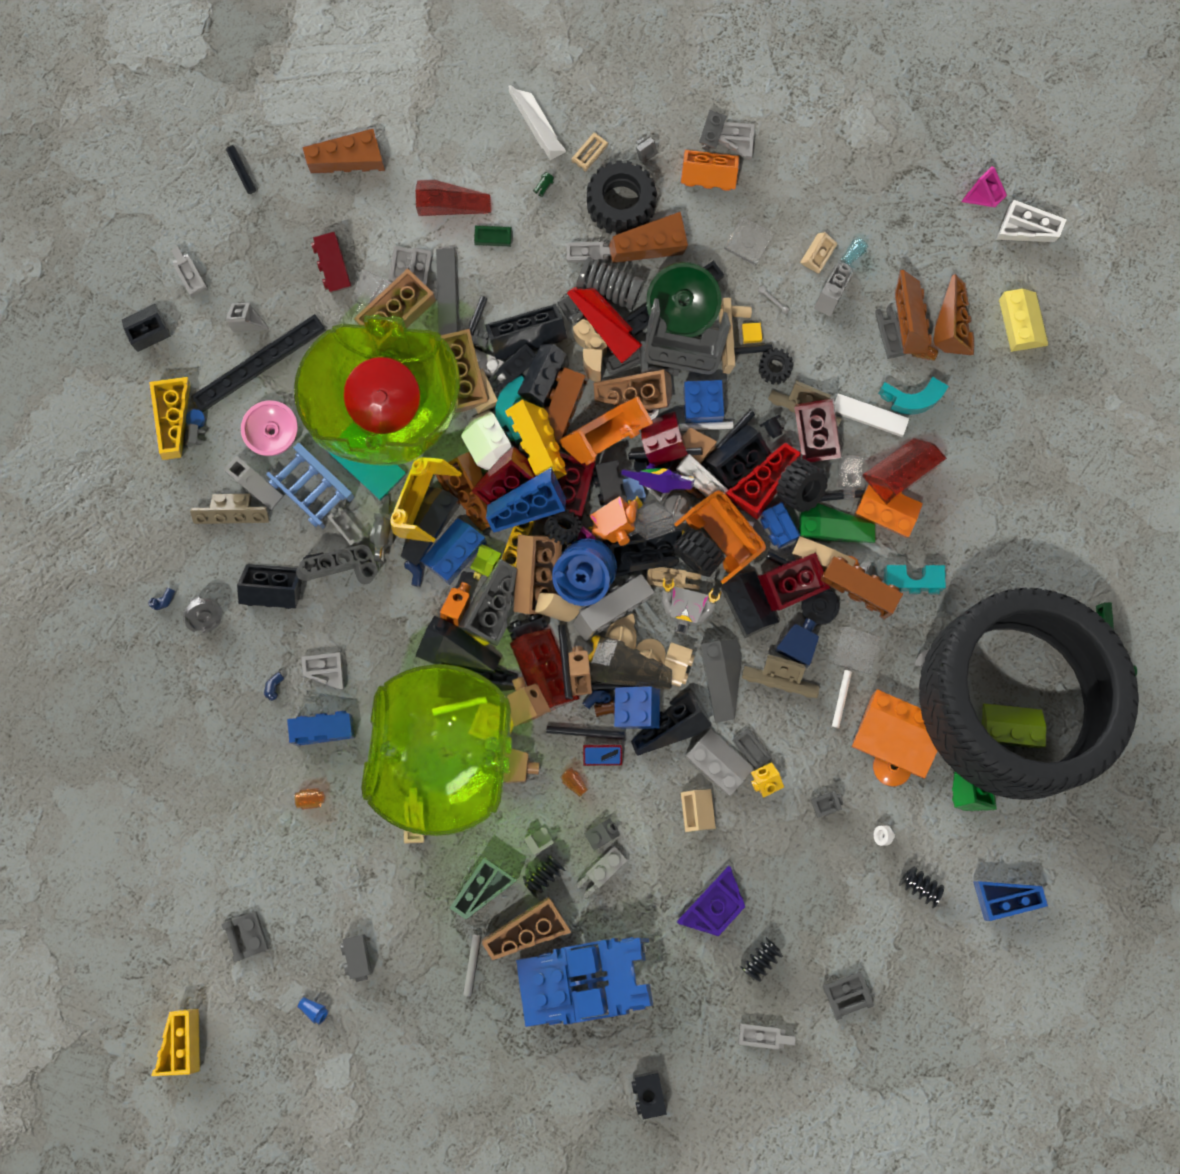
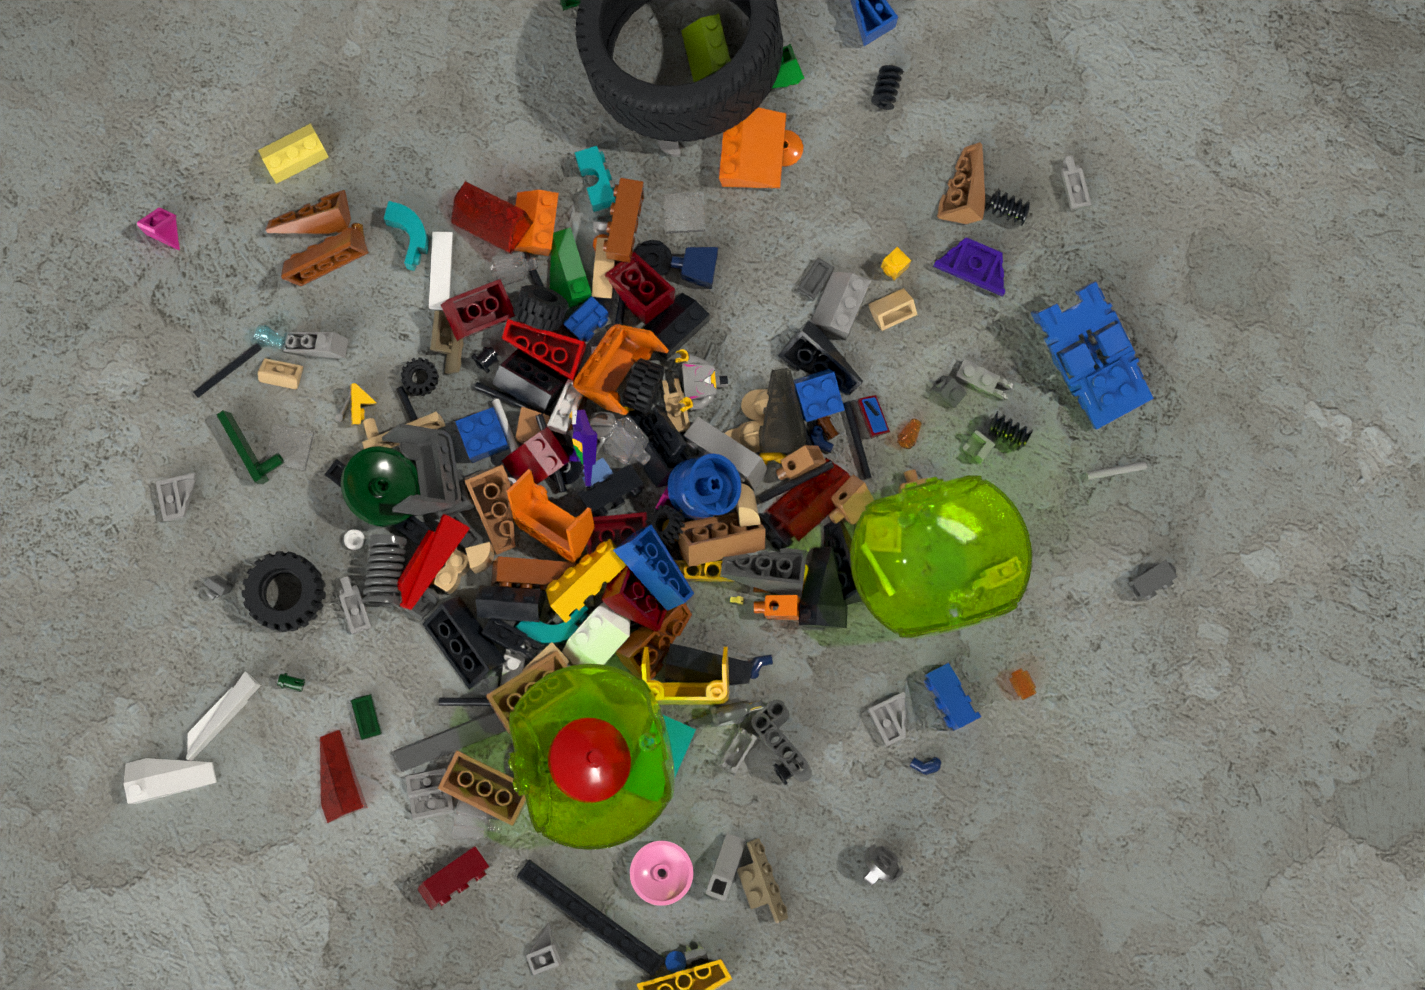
camera: 115 degrees left, 0 degrees up
(162, 602) = (882, 916): dark blue arm -> none
(180, 1044) = (1303, 716): yellow wedge -> none
(251, 933) = (1172, 691): dark grey plate -> none
(269, 586) = (826, 807): black slope -> none
(314, 1011) = (1217, 604): blue cone -> none
(327, 481) = (696, 790): medium blue fence -> none
(345, 154) = (322, 912): dark orange wedge -> none
(453, 550) = (719, 629): blue slope -> none
(482, 887) = (1045, 484): sand green wedge -> none
(485, 560) = (723, 595): lime panel -> none
(503, 61) = (159, 778): none -> white wedge
(530, 928) = (1066, 428): medium nougat wedge -> none
(580, 163) = (254, 652): tan tile -> none
(615, 520) = (641, 474): orange torso -> none
(648, 270) = (354, 539): none -> white tile
(653, 240) = (320, 539): dark orange wedge -> none
(653, 1107) = (1175, 260): black brick -> none
(678, 659) = (757, 374): tan brick -> none
(710, 170) = (221, 512): orange slope -> none
(712, 130) = (175, 523): dark grey hinge -> none
(722, 674) = (754, 329): dark grey wedge -> none
(736, 207) = (256, 470): none -> dark green piece
(740, 827) = (895, 263): none -> yellow brick
(751, 333) = (390, 412): yellow tile -> none
(766, 780) = (841, 254): yellow brick -> none
(772, 307) = (358, 398): none -> yellow slope
(782, 675) = (735, 272): dark tan bracket -> none
(788, 924) = (966, 191): none -> medium nougat wedge
(827, 804) = (842, 193): dark grey bracket -> none
(836, 210) = (227, 370): none -> black bar
(841, 699) = (736, 211): white bar -> none
(845, 989) = (1004, 127): dark grey plate -> none
(883, 835) = (853, 135): white tile -> none
(890, 333) = (347, 276): dark grey hinge -> none
(1030, 224) = (187, 175): white wedge -> none

